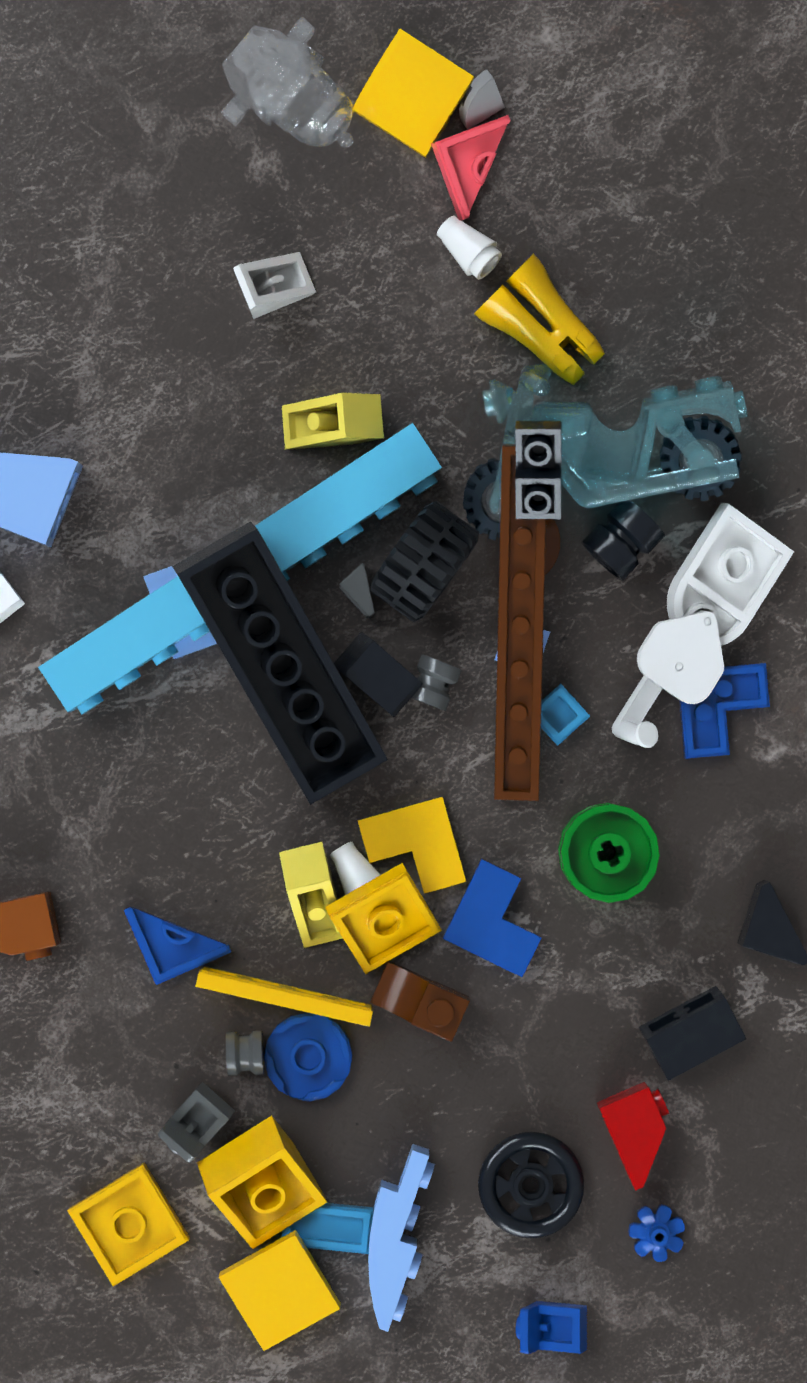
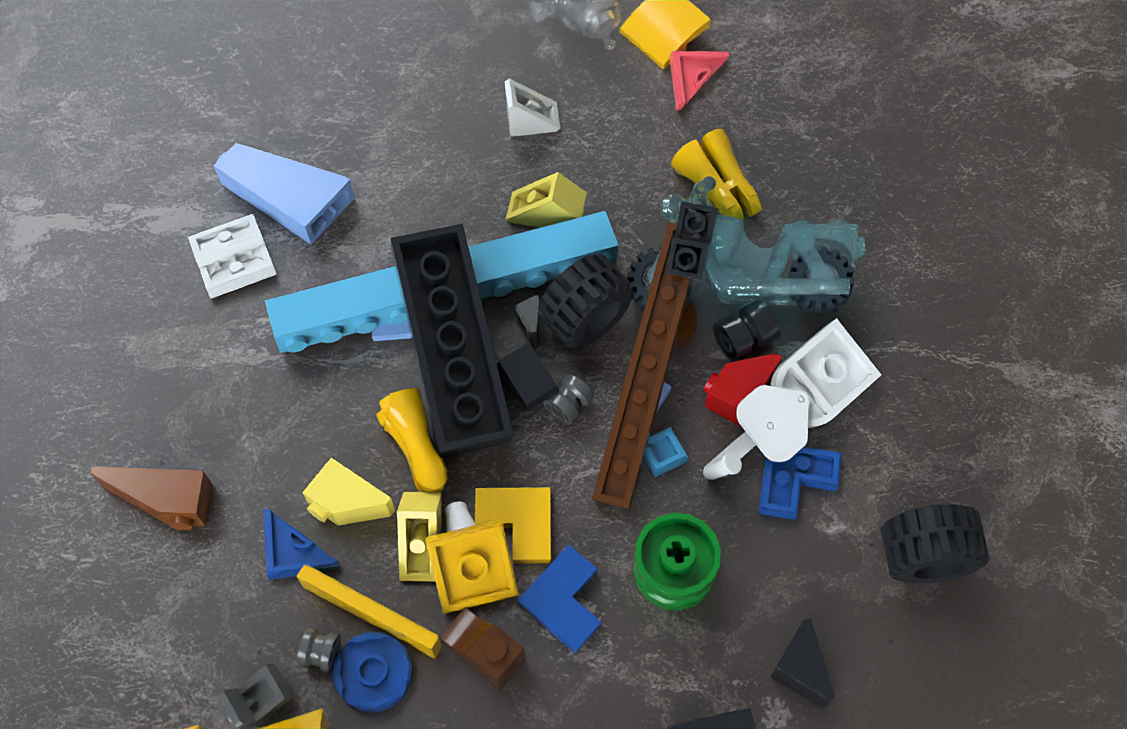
camera: 20 degrees right, 25 degrees down
(211, 873) = (345, 497): none -> light yellow slope
(259, 770) = (406, 421): none -> yellow piece
(469, 247) = (680, 122): white cone -> none
(481, 101) = (712, 37): light grey tile -> none
(631, 612) = (736, 382): none -> red slope

